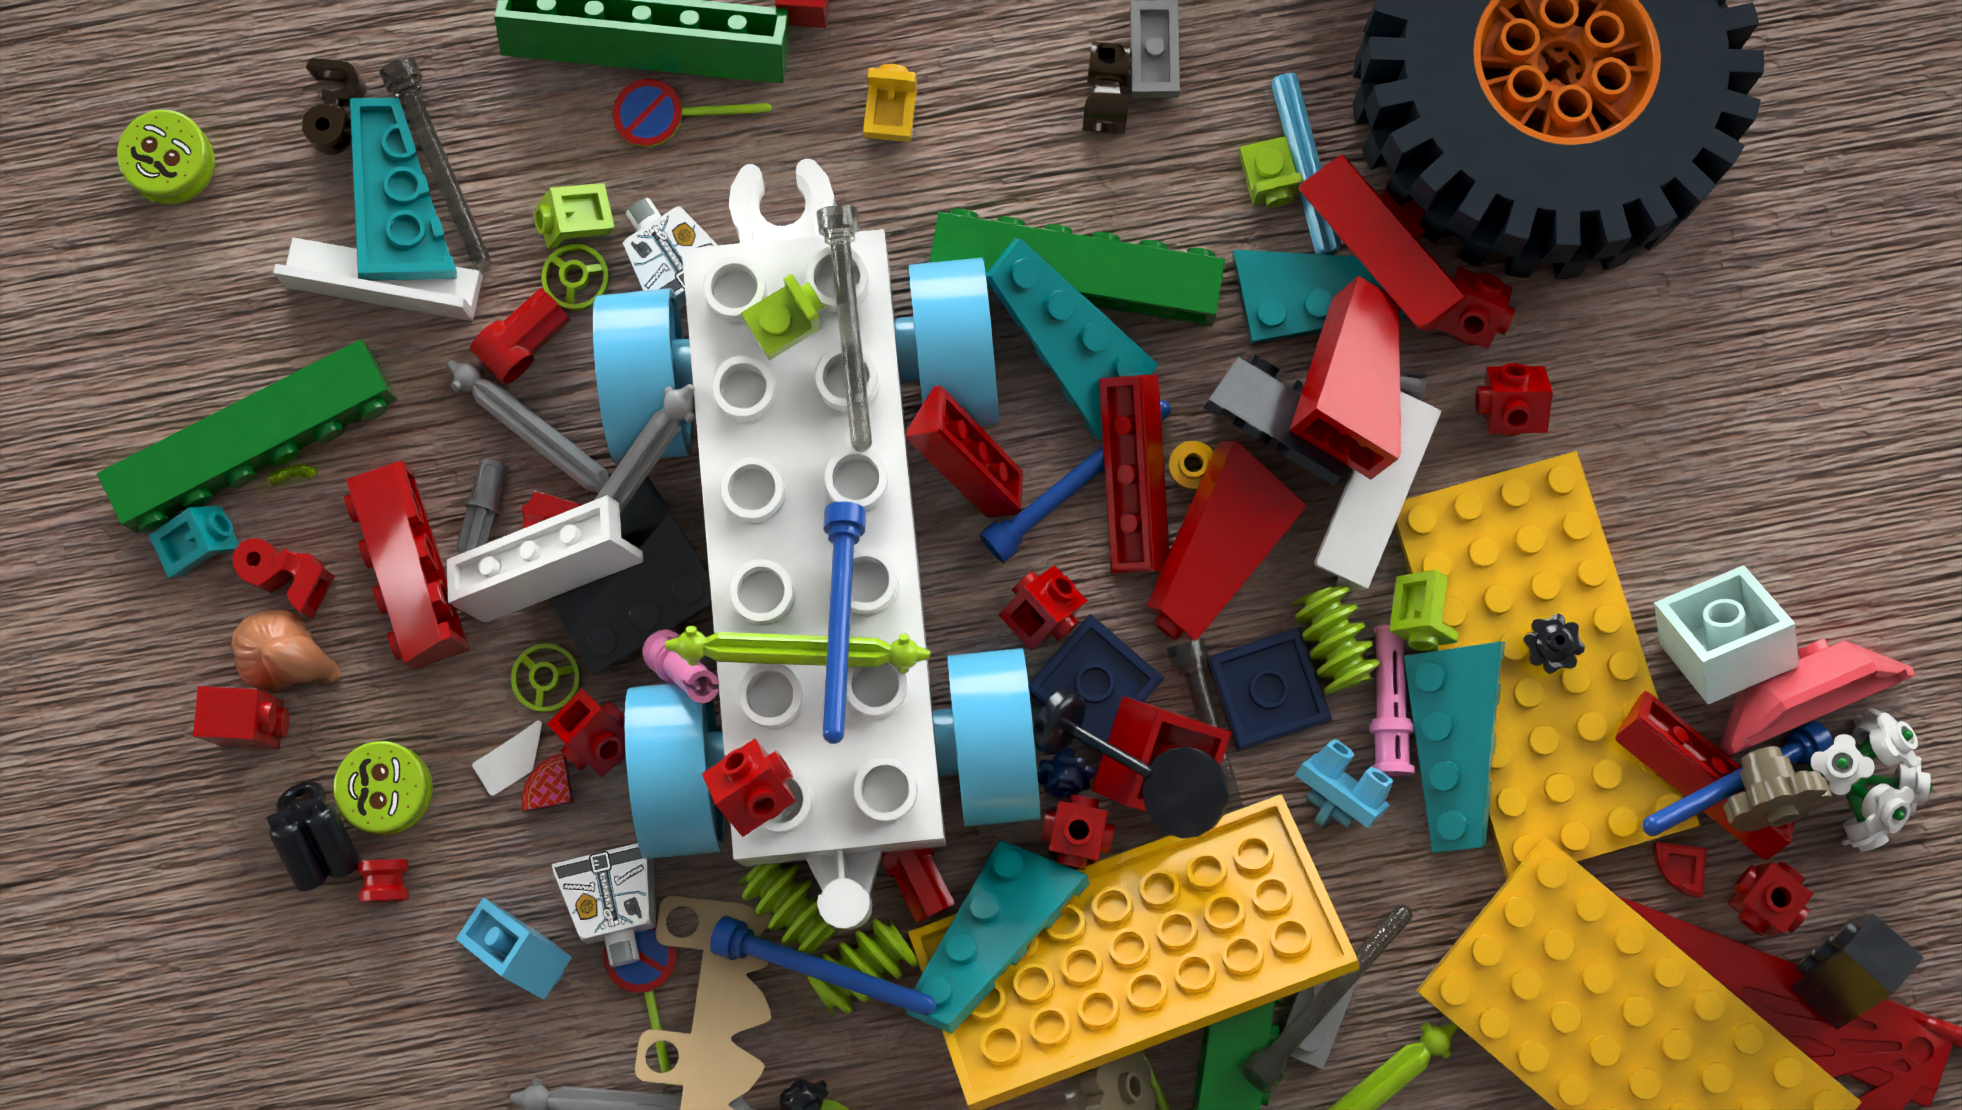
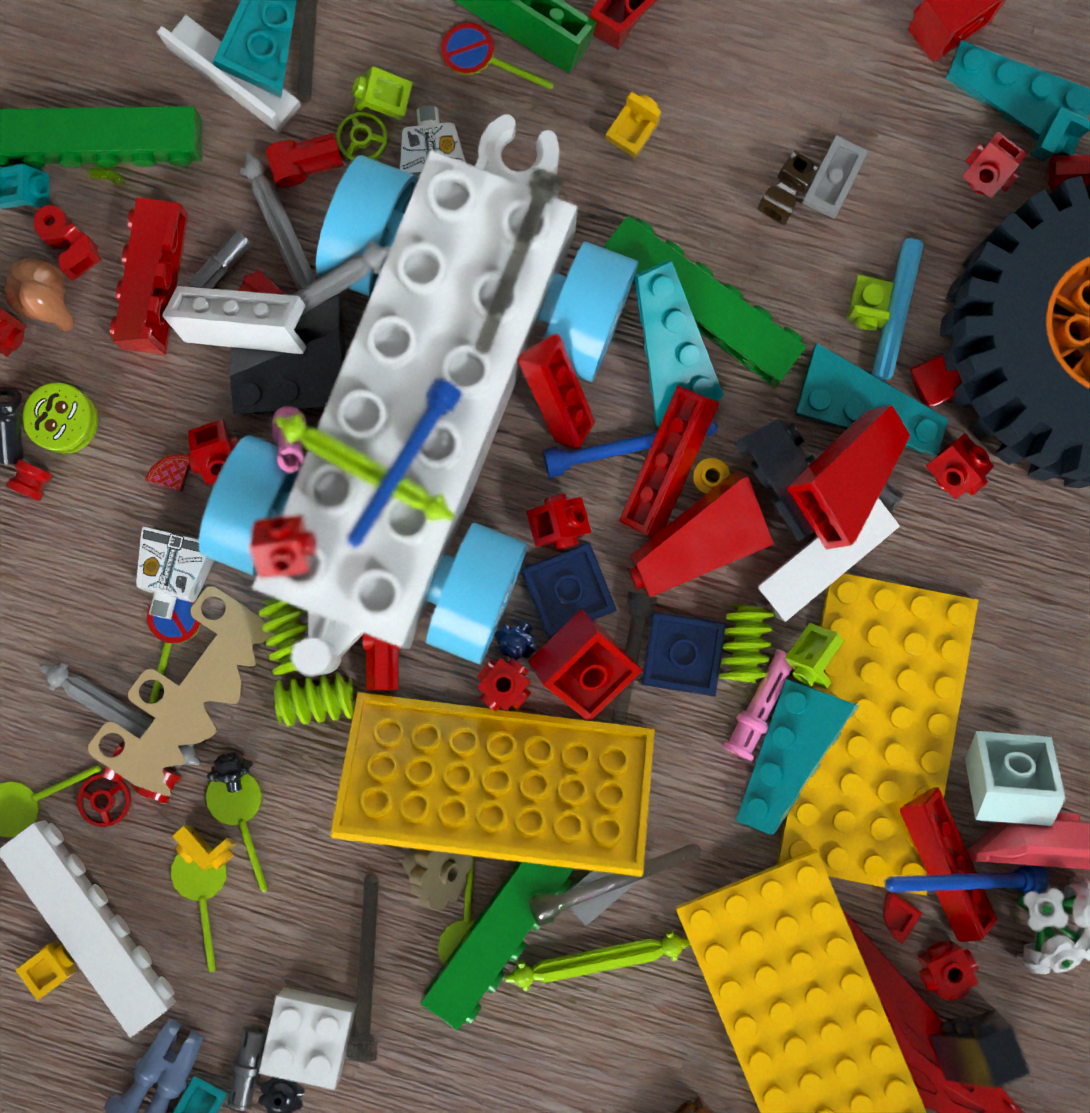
camera: 25 degrees right, 5 degrees up
(510, 760) = (154, 442): white sticker -> none
(513, 949) = (92, 570): medium azure slope -> none
(557, 674) = (214, 399): lime piece -> none
(734, 939) = (239, 639): blue piece -> none
(784, 317) = (473, 232): lime bracket -> none
(995, 924) = (421, 715): teal wing -> none
(1180, 788) = (586, 692): black piece -> none
(1340, 794) = (694, 749): medium azure hips -> none
(1382, 243) = (920, 390): red slope -> none
(1515, 399) = (955, 543): red brick -> none
(1554, 643) = (892, 724): black plant -> none
(1774, 792) = (988, 903): dark tan plant -> none

